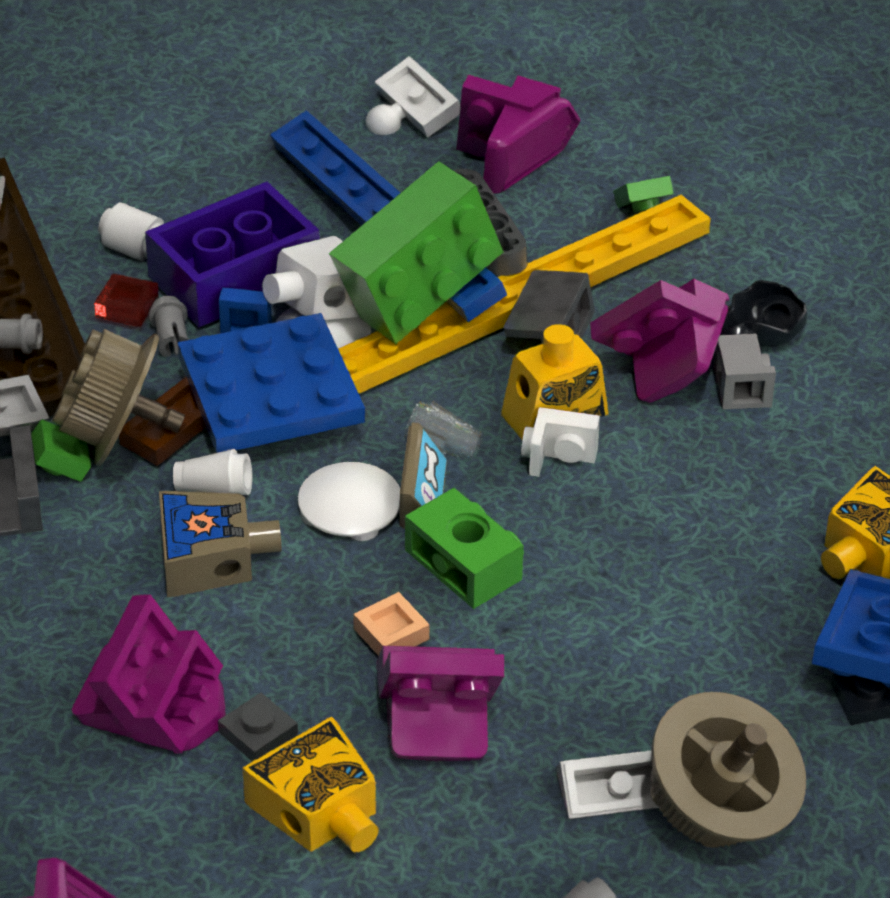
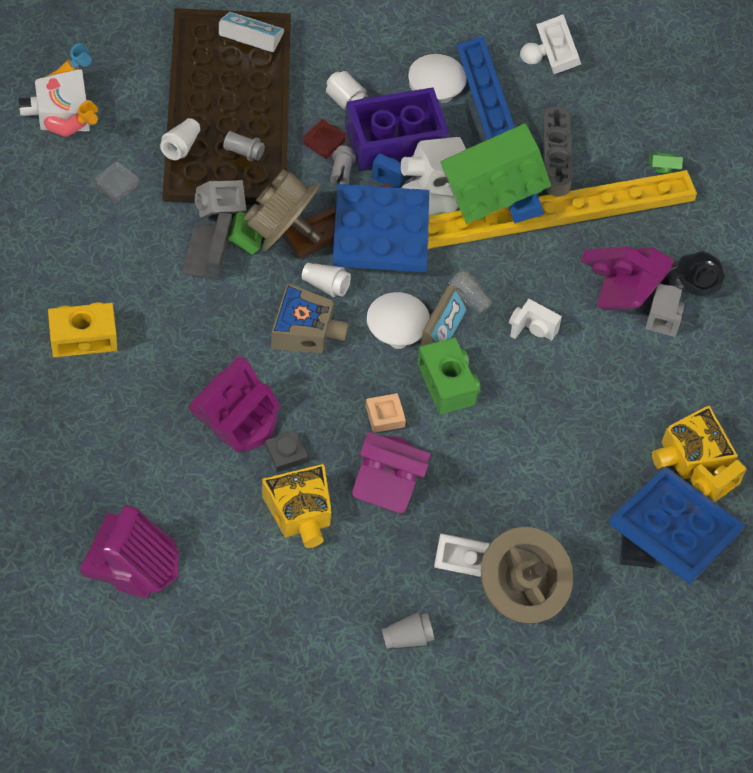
camera: 15 degrees right, 15 degrees up
(258, 168) = (439, 72): none -> white dish
(513, 127) = (601, 92): magenta piece -> none
(551, 300) = (569, 232): flat silver panel -> none
(554, 376) = (546, 283): yellow torso -> none

